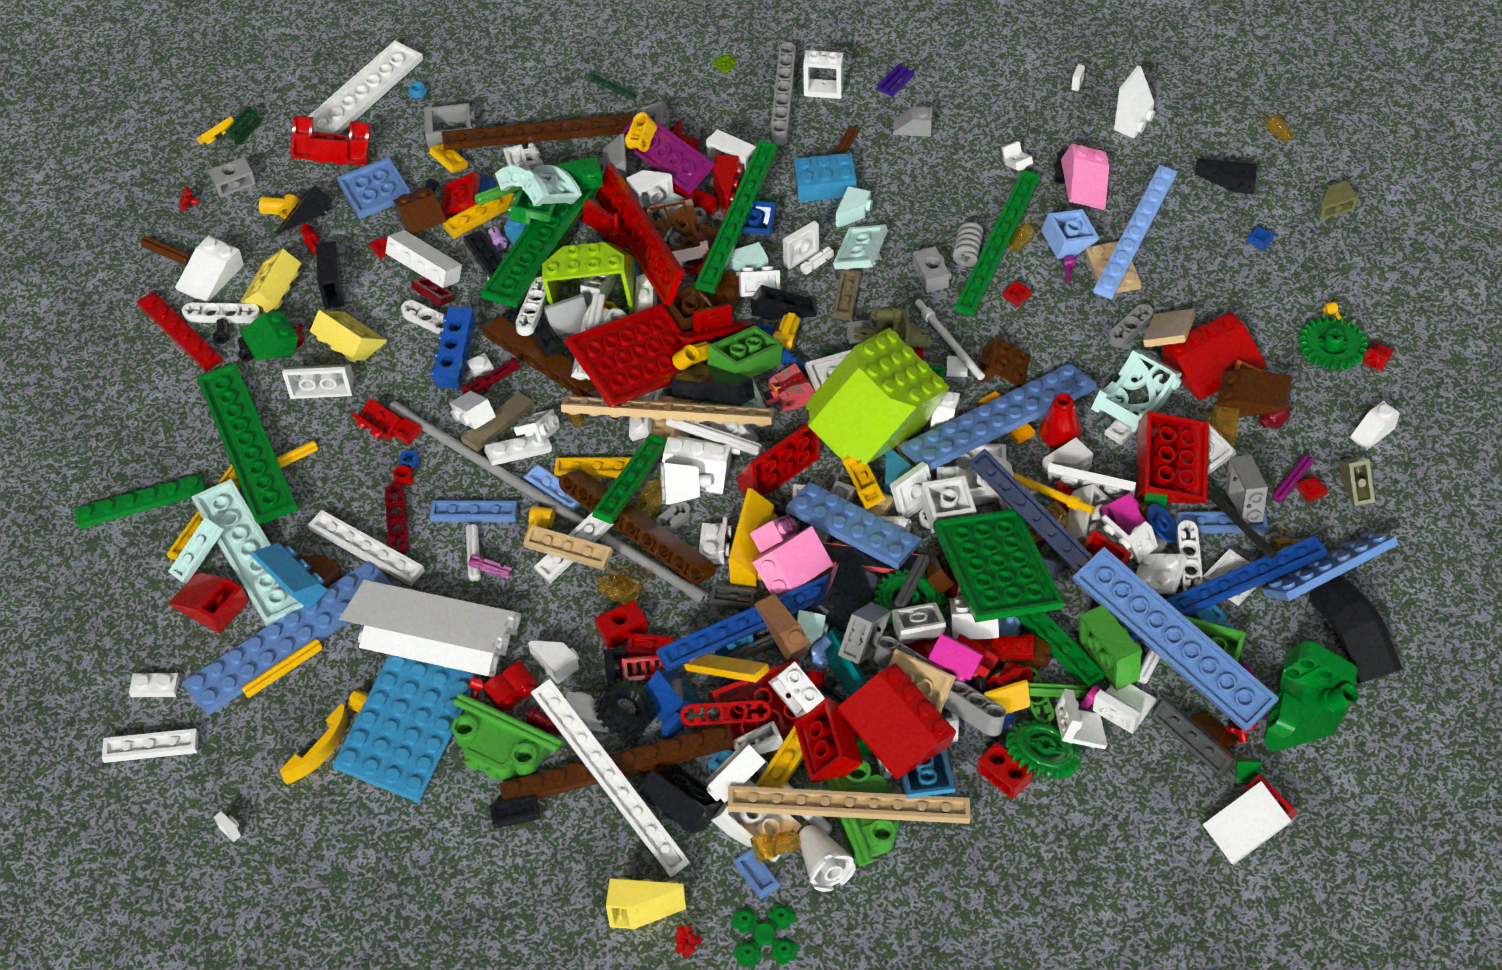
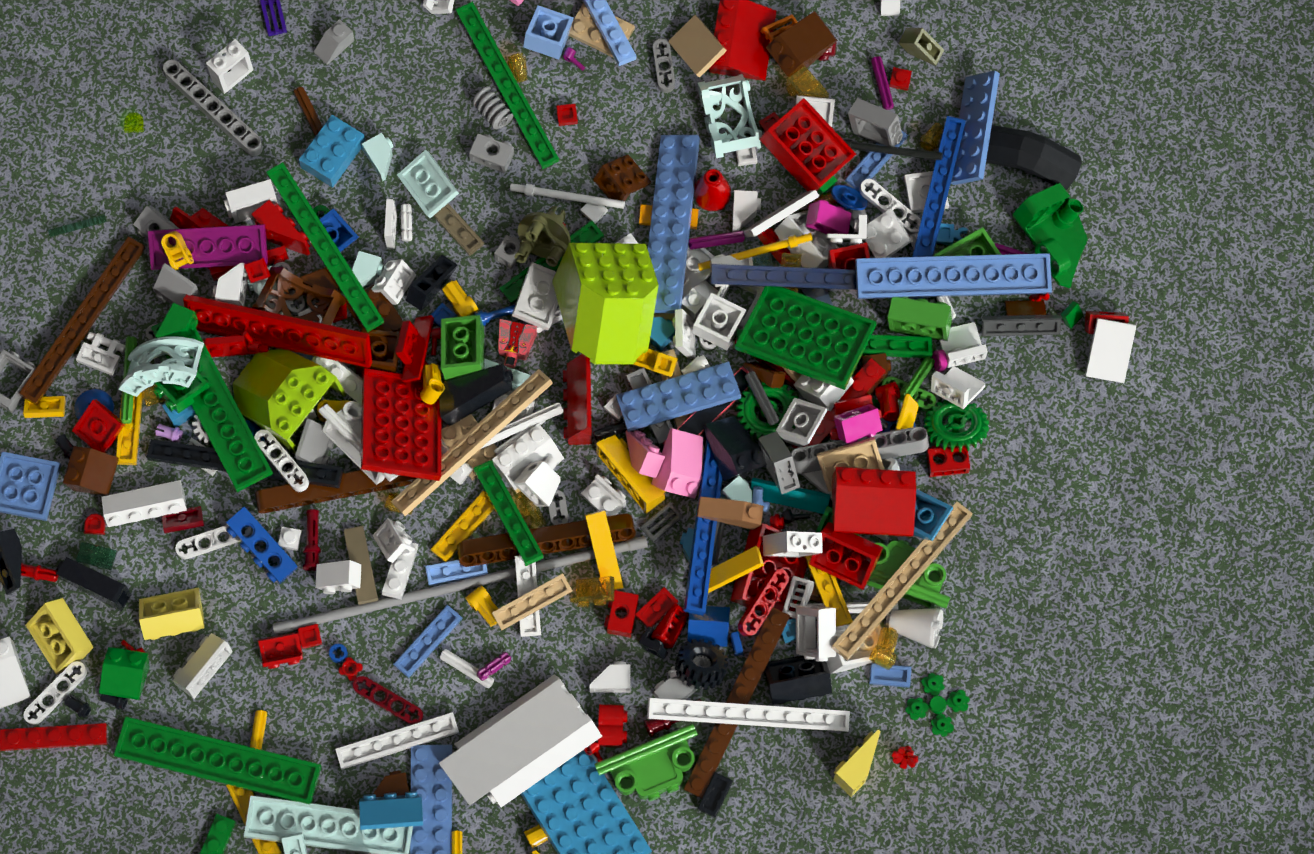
camera: 55 degrees left, 20 degrees up
(354, 261) = (96, 556): none -> clear green hips
(663, 566) = (603, 547): none -> yellow tile
(674, 187) = (257, 270): none -> red plate
(1021, 459) = (716, 240): none -> magenta axle

